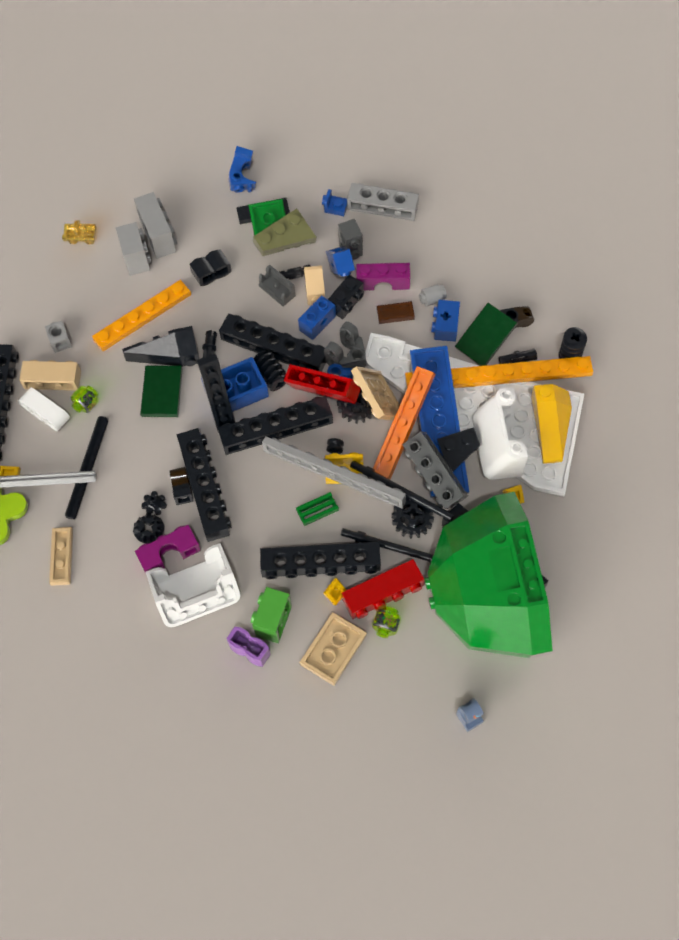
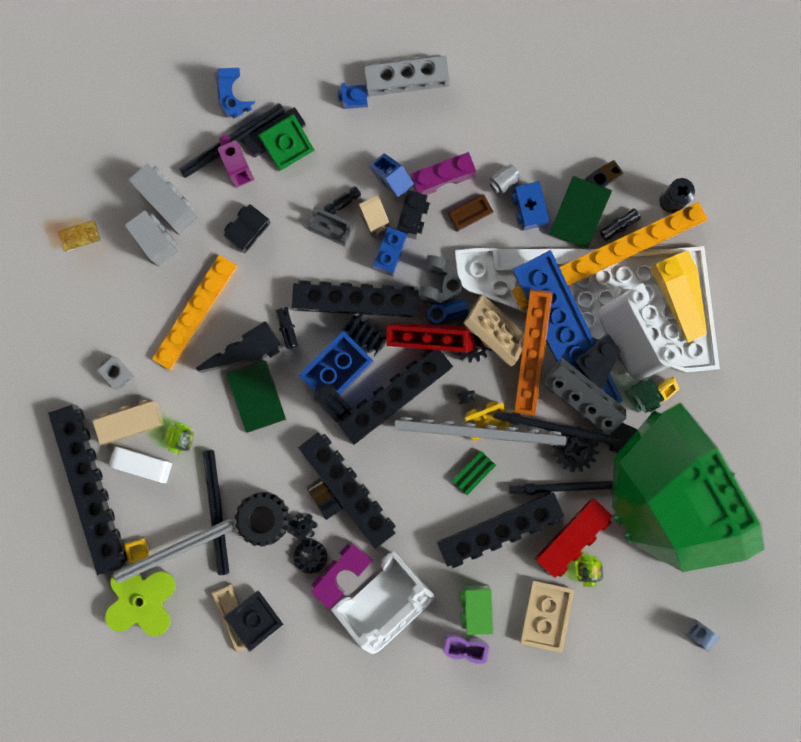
camera: 25 degrees left, 20 degrees up
(76, 560) = (253, 620): none -> black plate
(117, 468) = (245, 526): none -> black tyre
(222, 211) = (234, 161): none -> magenta torso
(224, 206) = (244, 131): none -> black axle
(284, 234) = (314, 160): olive wedge -> none
(334, 591) = (525, 556): yellow slope -> none
(351, 237) = (392, 142): dark grey brick -> none
(487, 485) = (644, 396): none -> clear green brick

